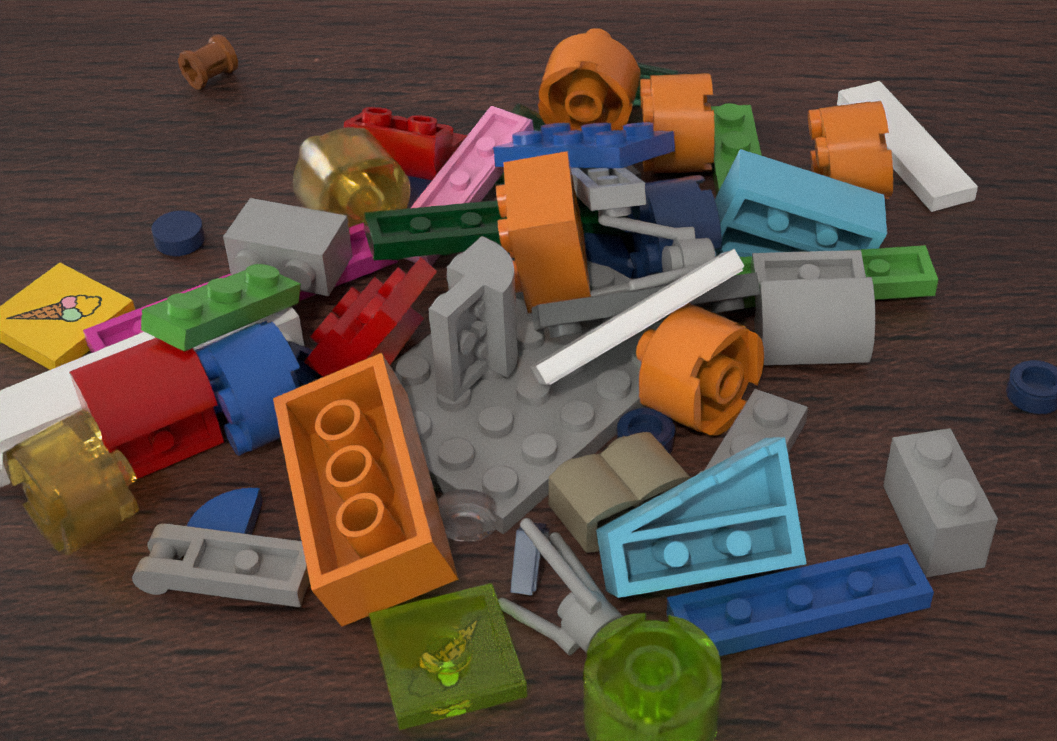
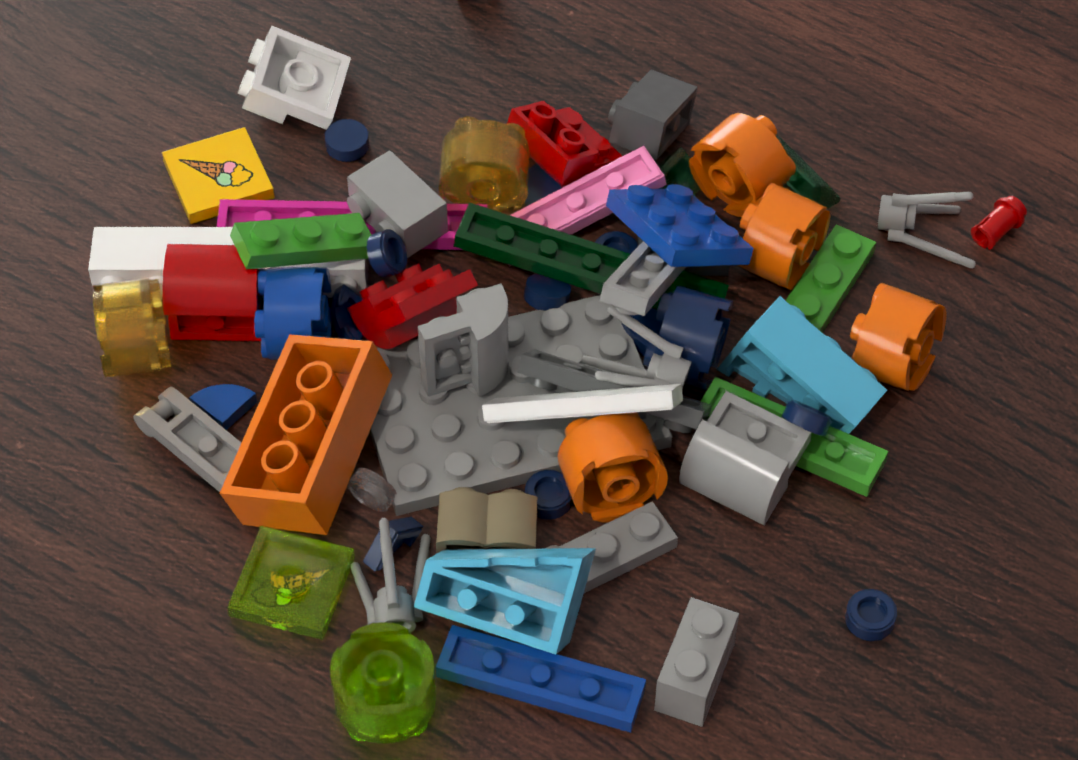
camera: 30 degrees right, 10 degrees up
(81, 199) = (293, 79): none -> white plate
(317, 286) = (386, 253): none -> dark blue tile
(468, 86) = (652, 113): none -> dark grey brick
(543, 229) = (566, 294): orange brick -> none
(752, 76) = (900, 212): none -> light grey plant
(835, 46) = (1007, 214): none -> red pin
(843, 239) = (807, 417): none -> dark blue tile
(915, 153) = (975, 347): white tile -> none

